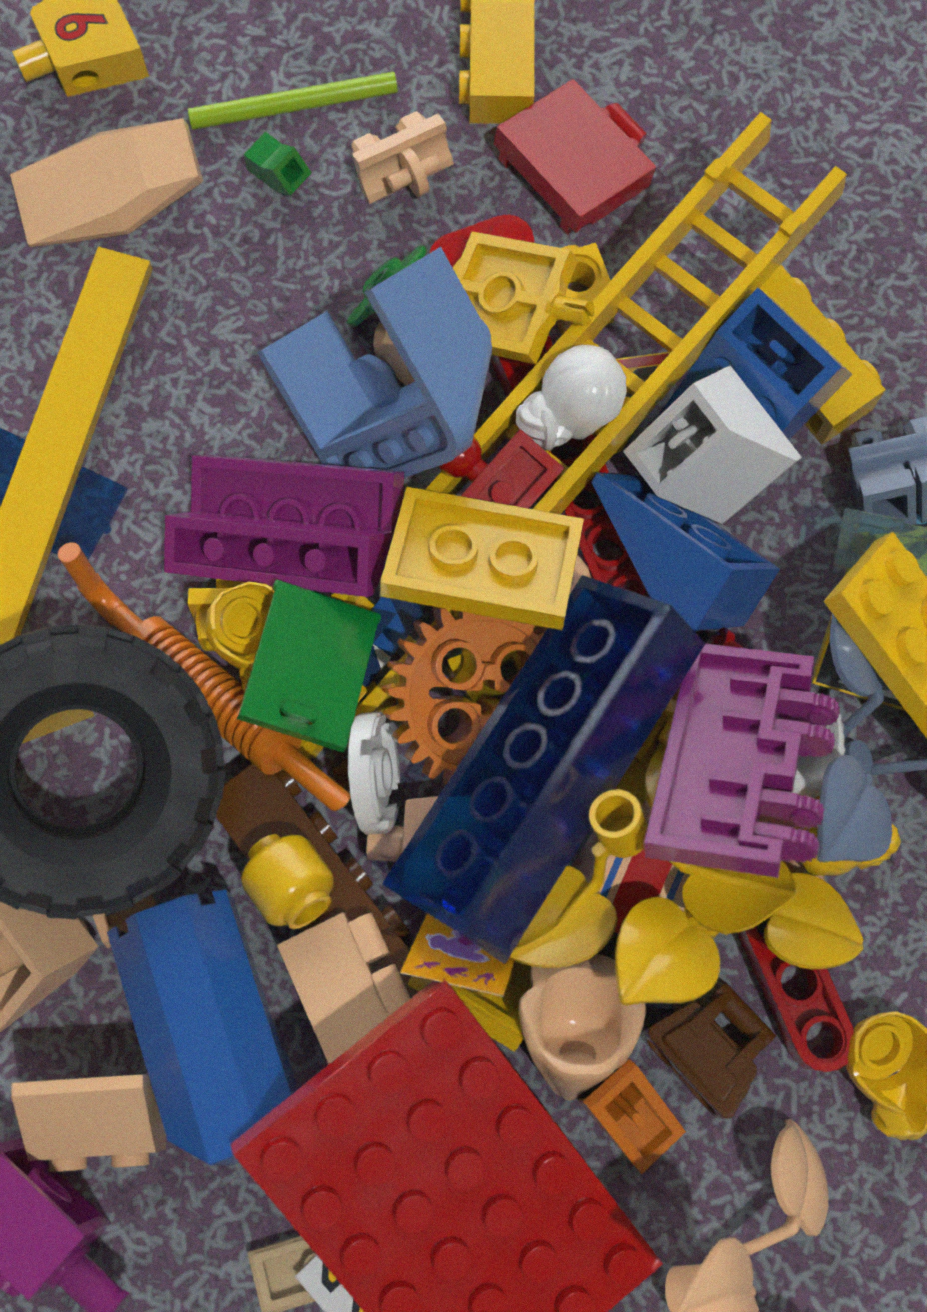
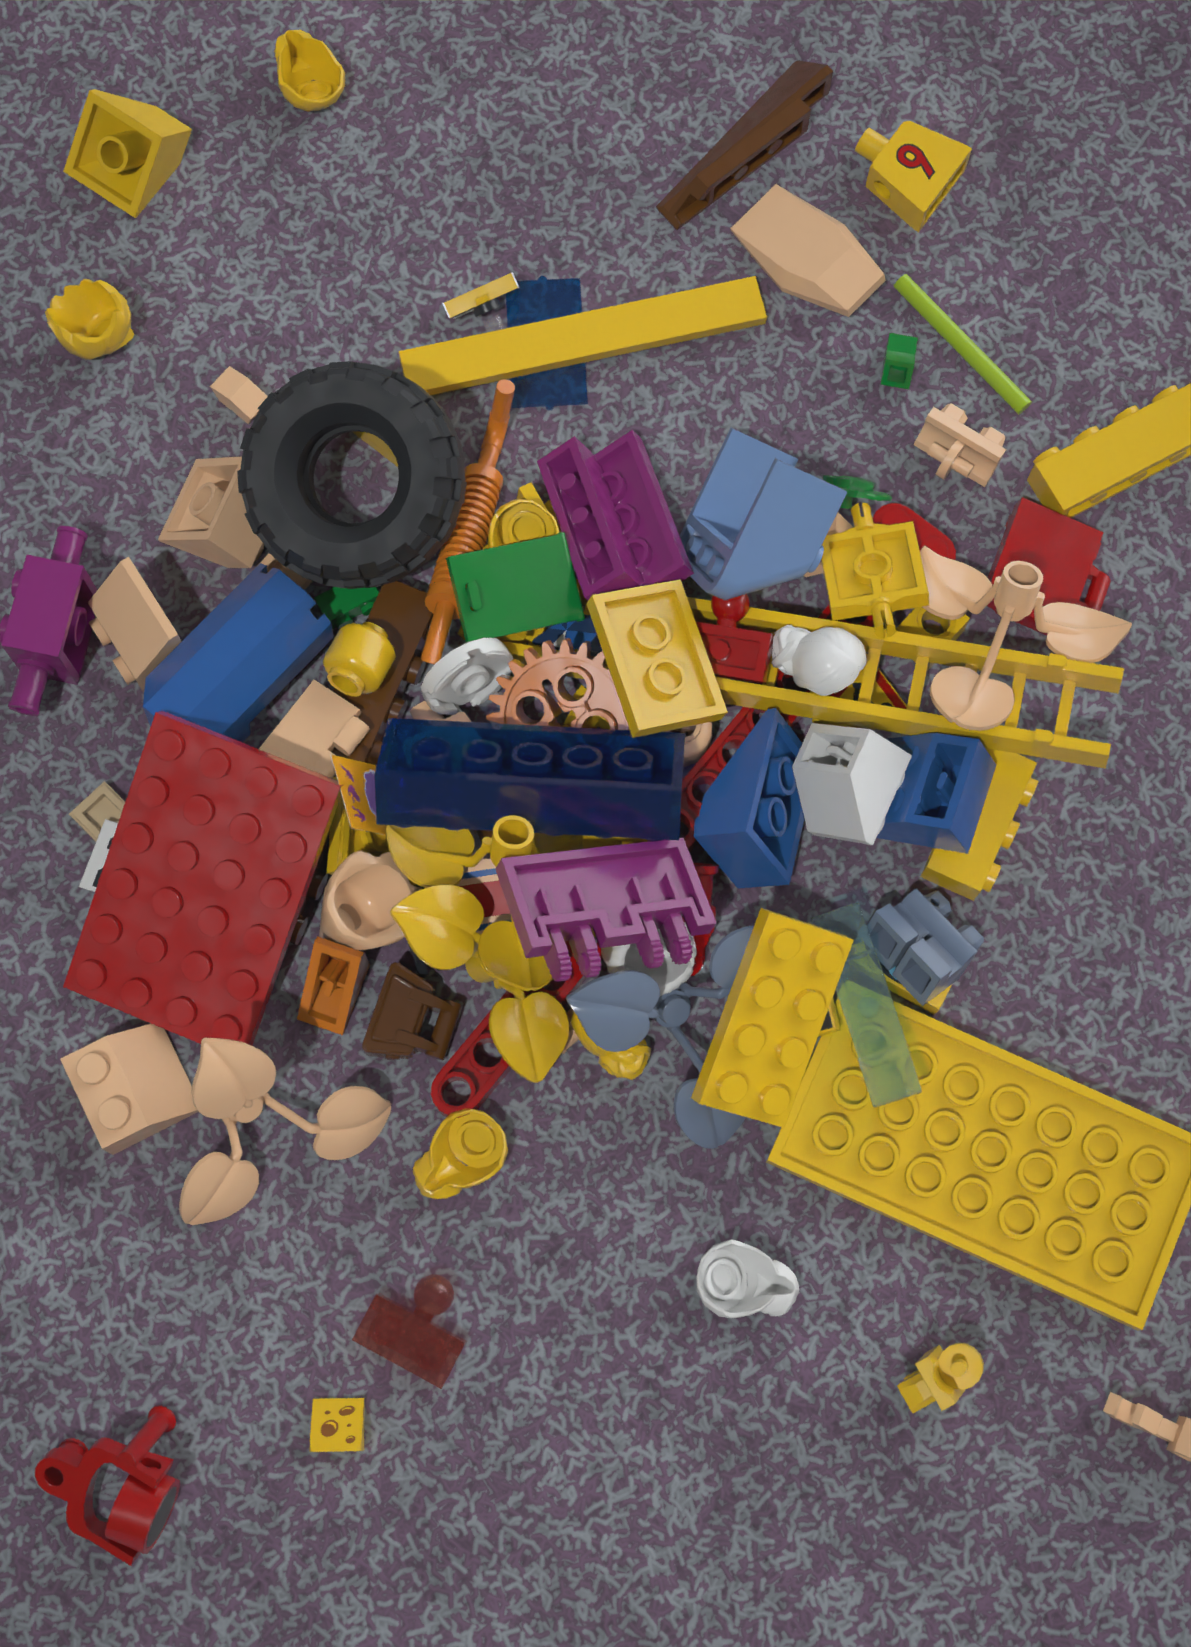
camera: 60 degrees right, 0 degrees up
(202, 873) = (344, 604): none -> green piece
(689, 141) = (1072, 631): none -> light nougat plant

